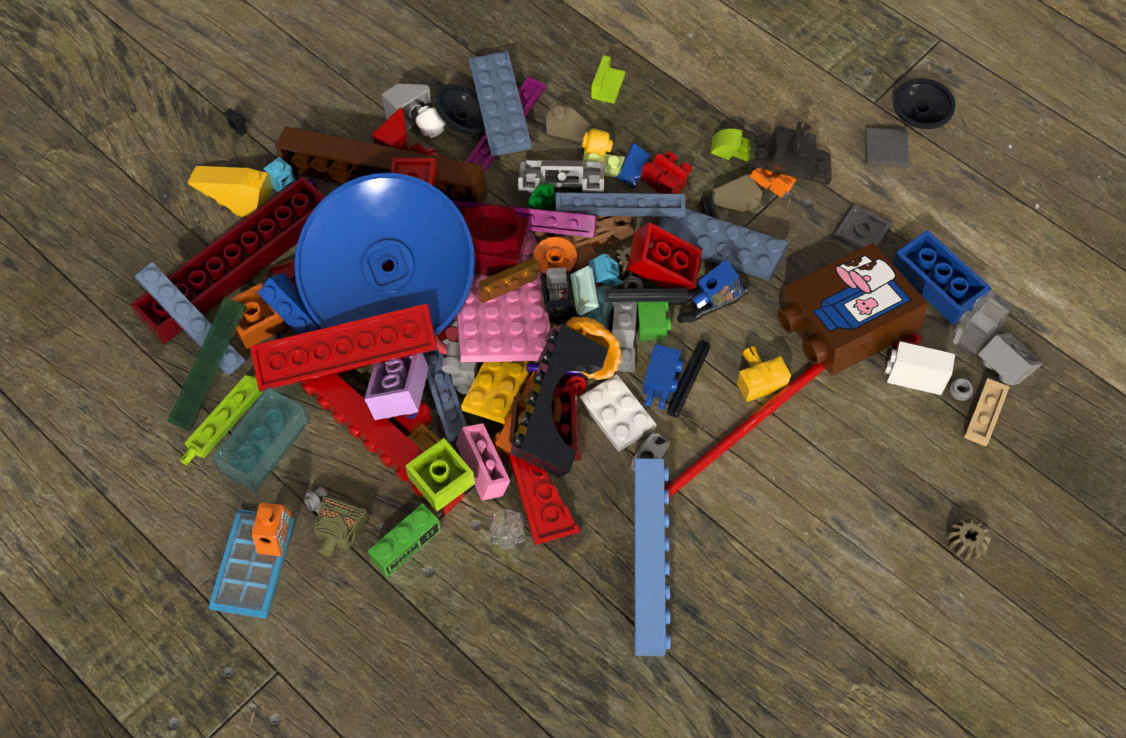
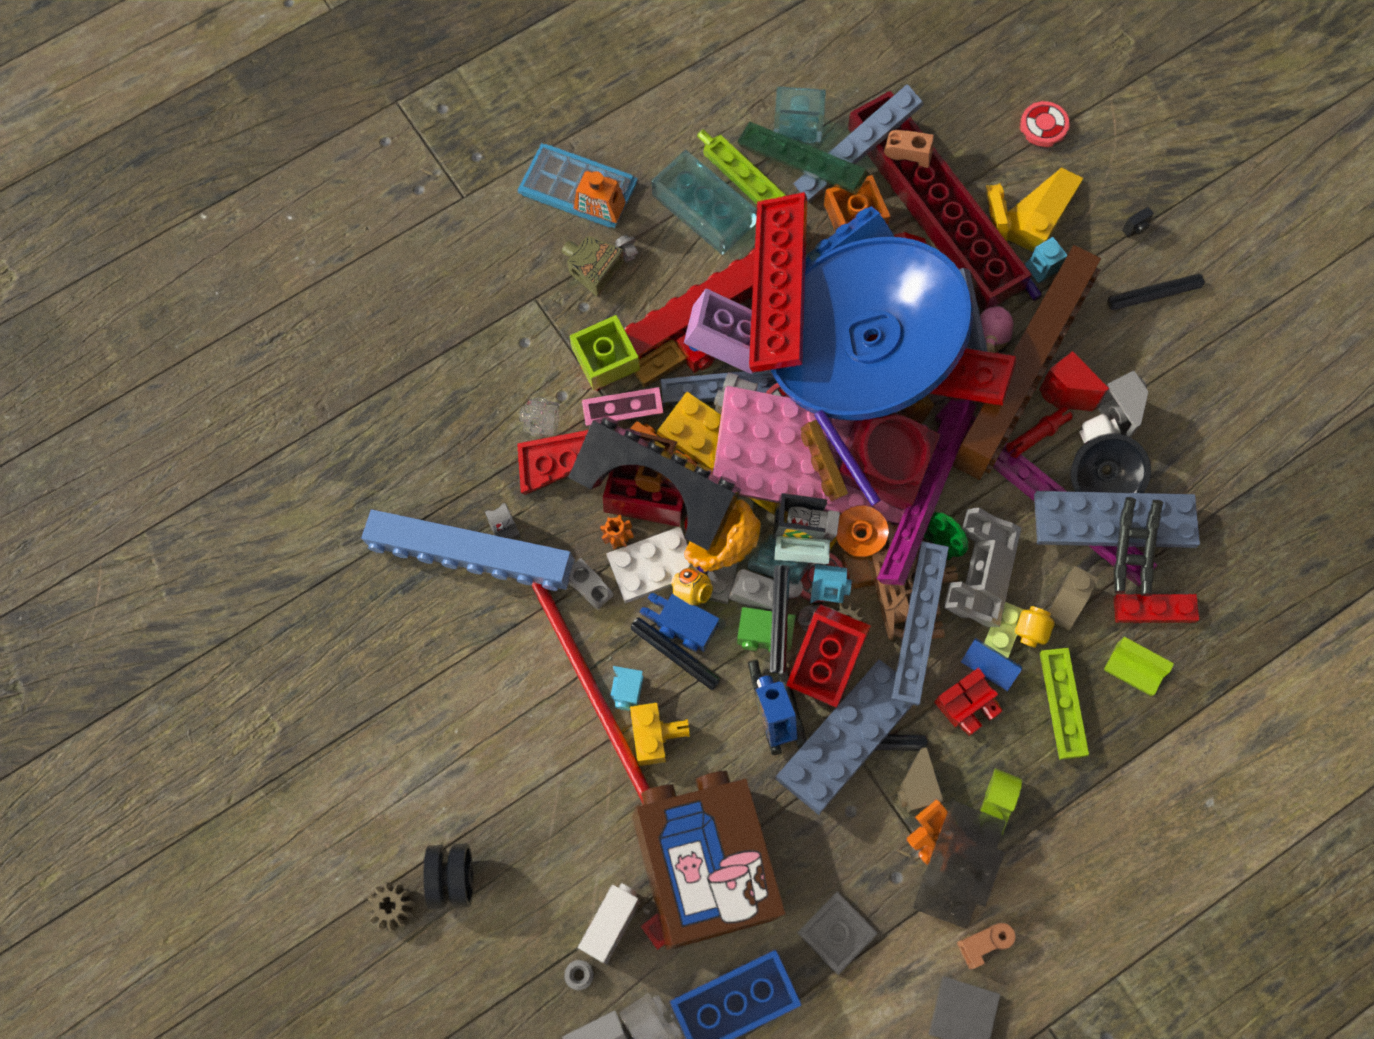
camera: 105 degrees right, 10 degrees up
(145, 198) = (1044, 124): none -> tile
(159, 376) = (800, 113): none -> clear light blue brick
(193, 272) = (910, 146): none -> nougat leg
(236, 214) = (998, 209): none -> yellow hinge
(295, 104) = (1155, 291): none -> black axle
(404, 540) = (554, 316): bright green brick -> none
(506, 256) = (847, 458): none -> dark purple bar
(531, 80) = (1150, 537): none -> pearl dark grey piece
(559, 77) = (1156, 608): none -> red plate
(597, 447) = (614, 525): none -> orange gear
(616, 535) = (502, 523): none -> light grey leg
(633, 370) = (692, 586): none -> yellow head
(648, 119) = (1064, 703): none -> lime plate
(730, 404) = (626, 687): none -> medium azure window
(836, 141) = (992, 938): none -> nougat leg
(930, 492) = (448, 876): none -> black wheel
(986, 412) = (540, 994): tan plate -> none

